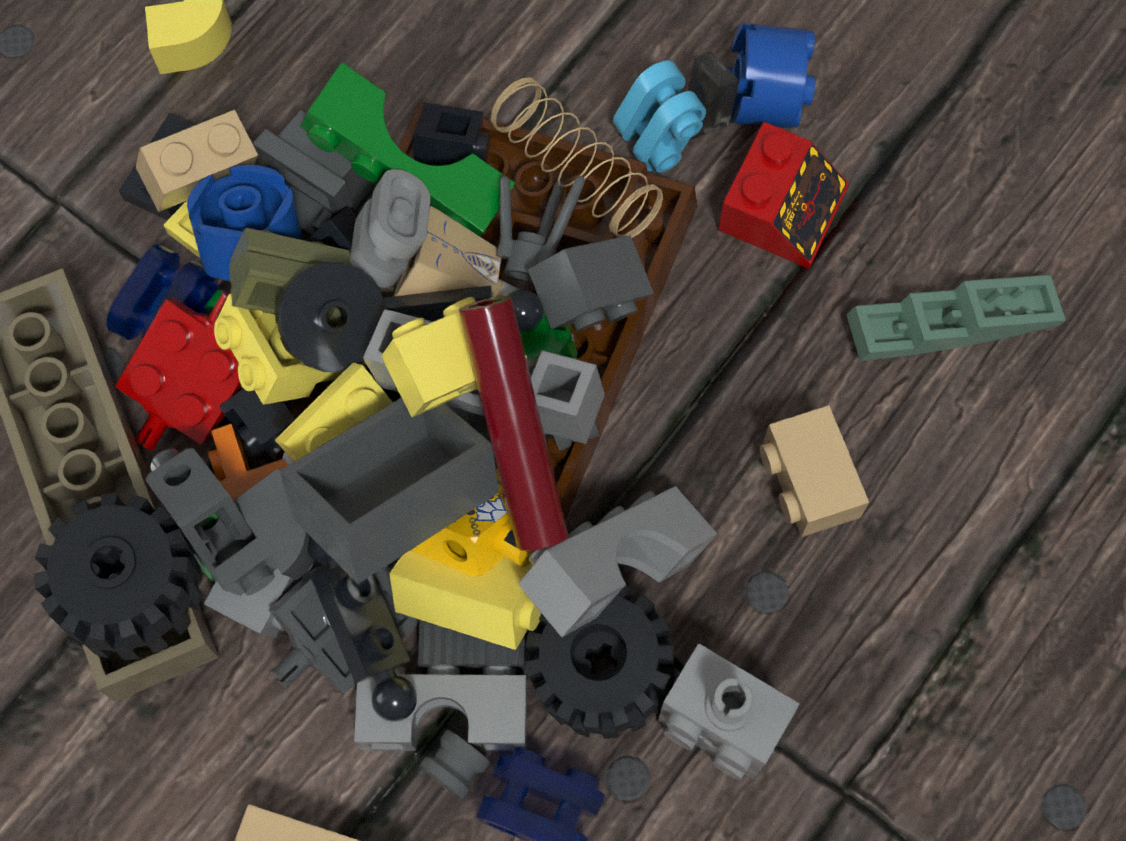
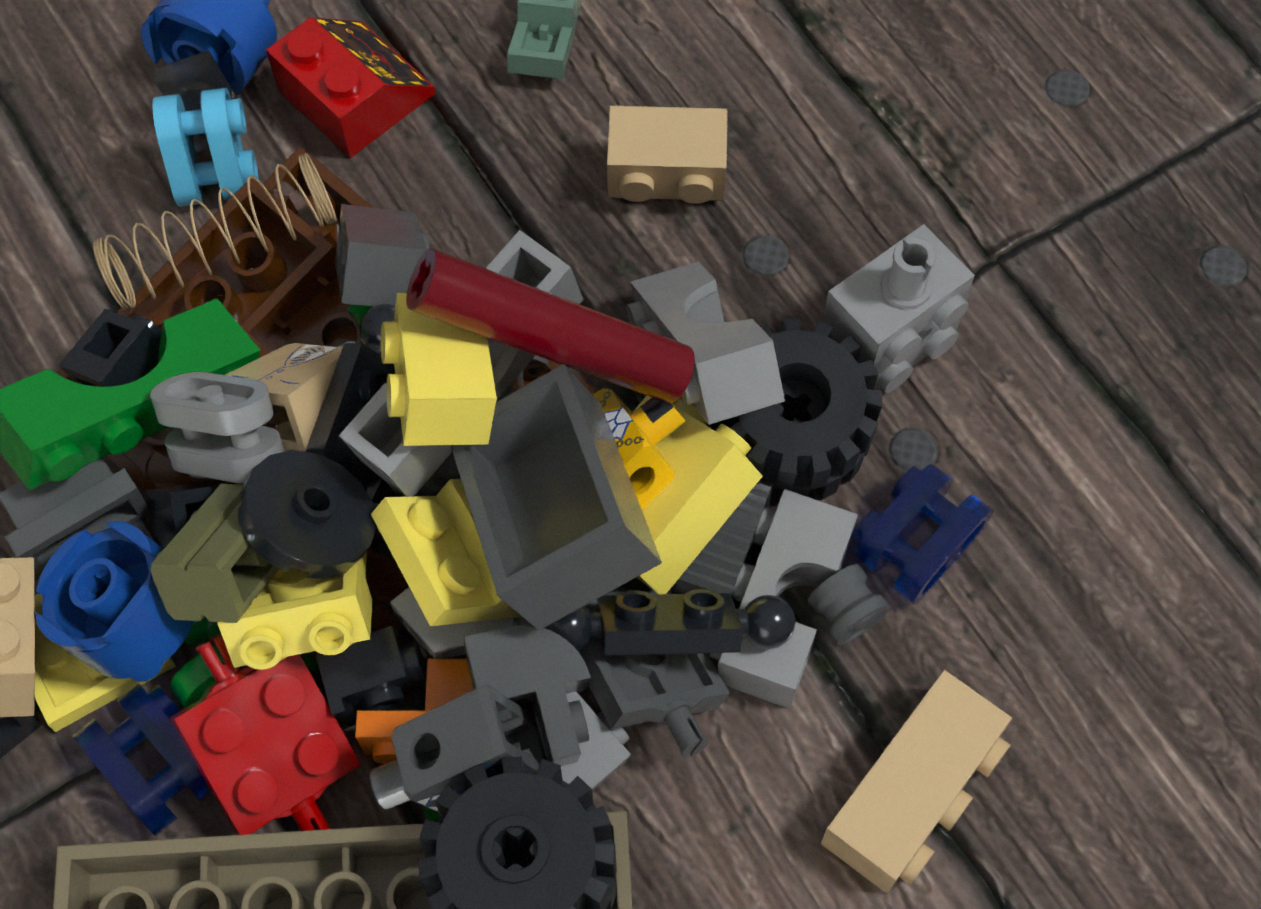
camera: 70 degrees left, 5 degrees down
(531, 247) = (306, 314): dark grey plant -> none

